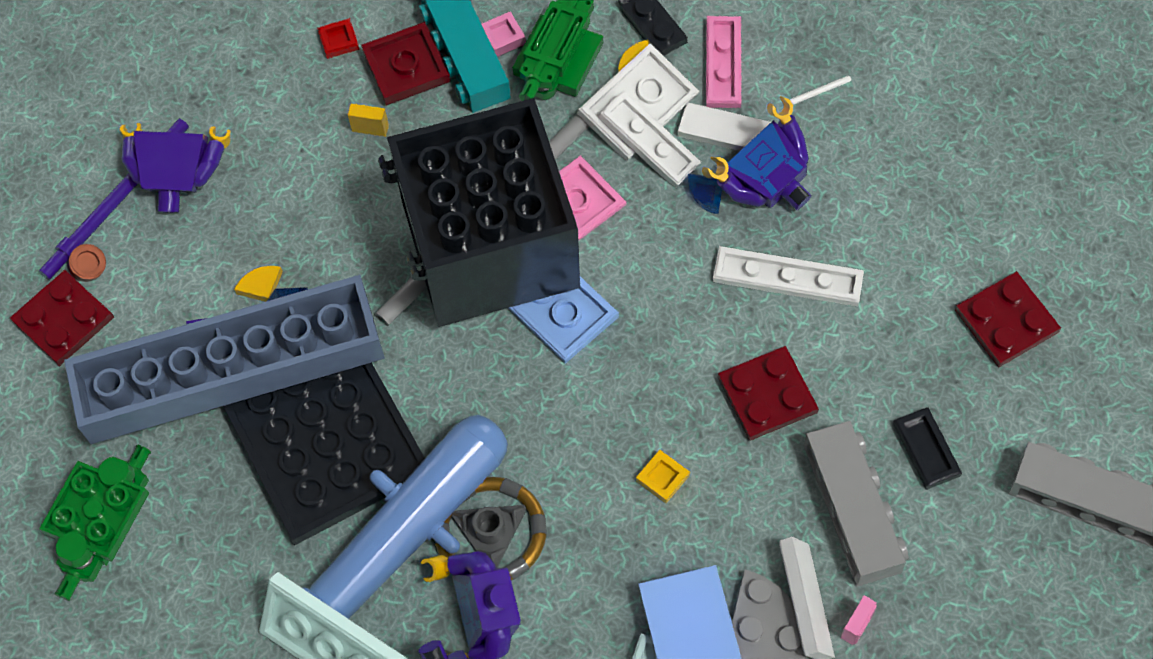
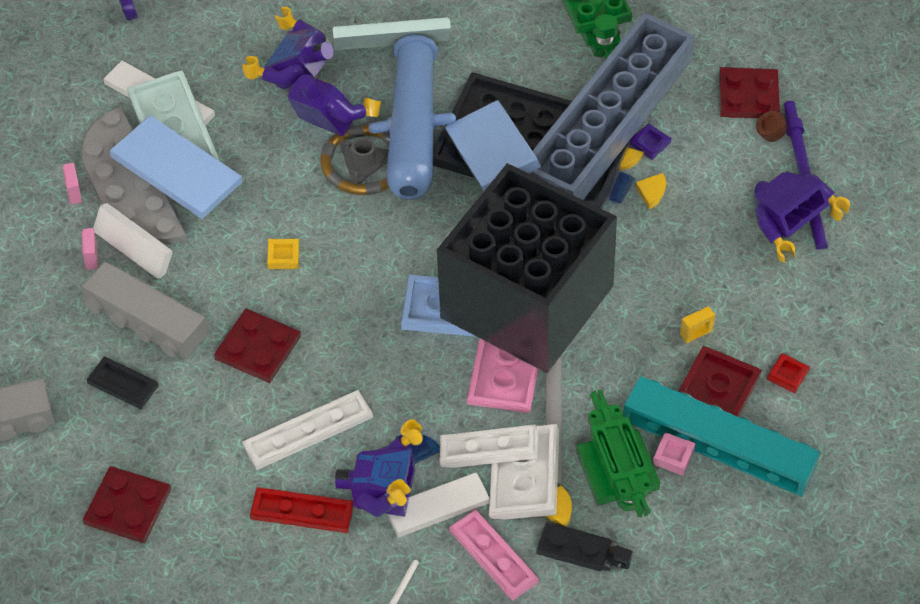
camera: 135 degrees right, 10 degrees down
(377, 394) = (489, 142): none -> light blue tile
(853, 207) = (302, 510): none -> red tile

